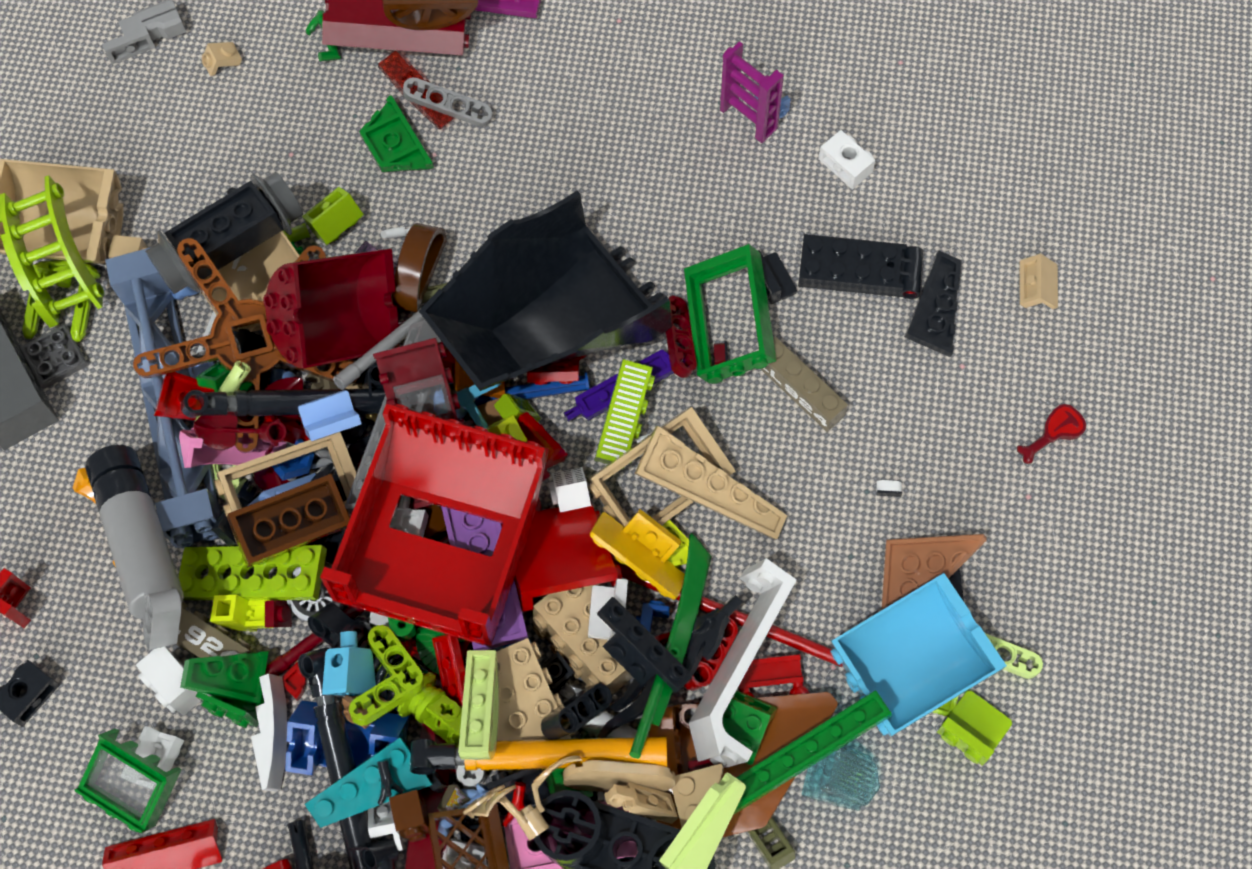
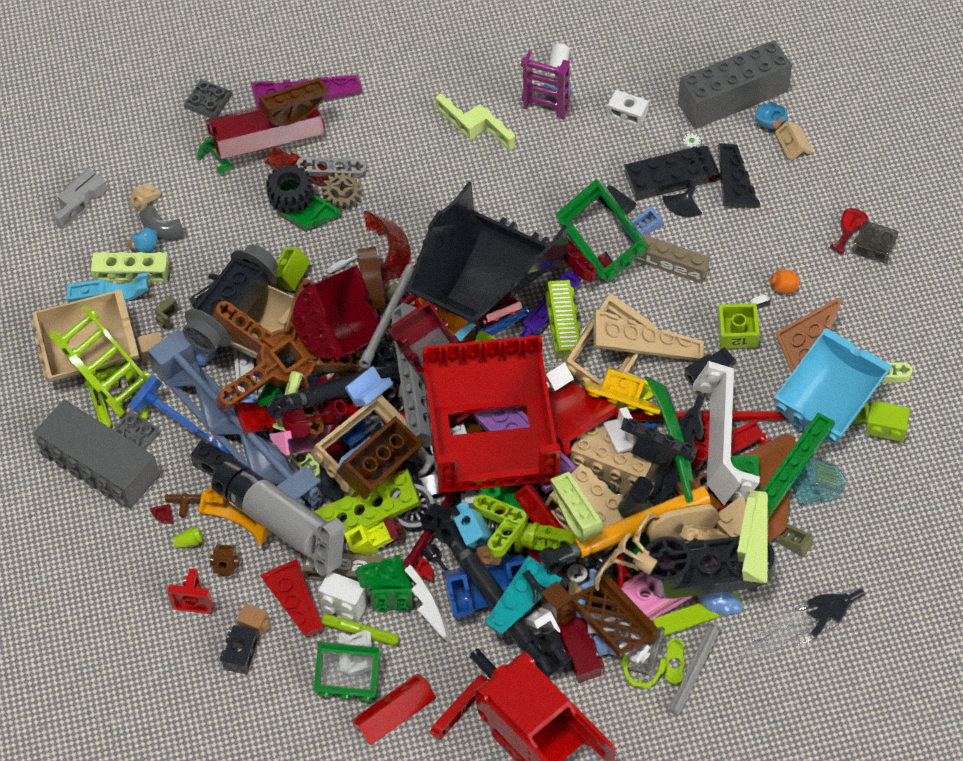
camera: 25 degrees left, 10 degrees down
(35, 473) = (163, 514): none -> dark red tile
(44, 518) = (188, 538): none -> lime cone
(60, 661) = (254, 618): none -> medium nougat brick
(65, 566) = (224, 560): none -> reddish brown brick
(66, 464) = (183, 498): none -> reddish brown piece
(82, 317) = (147, 395): none -> blue piece
(114, 157) = (93, 288): none -> medium azure piece
(119, 427) = (208, 458): none -> black brick
(122, 652) = (294, 595): none -> red wing
(125, 132) = (124, 272): none -> yellowish green brick
(166, 213) = (165, 311): none -> olive bracket
(179, 729) = (354, 627): none -> lime axle
(185, 115) = (143, 242): none -> dark azure hair
(214, 104) = (164, 229): none -> dark grey cylinder
(378, 97) = (289, 200): none -> black tyre
(443, 128) = (342, 190): none -> dark tan gear
(477, 225) = (398, 250): none -> clear red windscreen
(651, 107) = (475, 121): none -> yellowish green bracket
(781, 551) = (721, 357): none -> black piece
(788, 315) = (645, 216): none -> medium blue slope
(793, 63) = (559, 53): none -> white brick
(840, 513) = (738, 325): none -> lime brick
(855, 314) = (682, 203): none -> black hand
(906, 233) = (691, 140): none -> white tile
(932, 474) = (784, 281): none -> orange head
(995, 178) = (734, 84): none -> dark grey brick
(1024, 237) = (771, 115): none -> dark azure hair
(1078, 465) = (875, 242): none -> clear smoke bracket

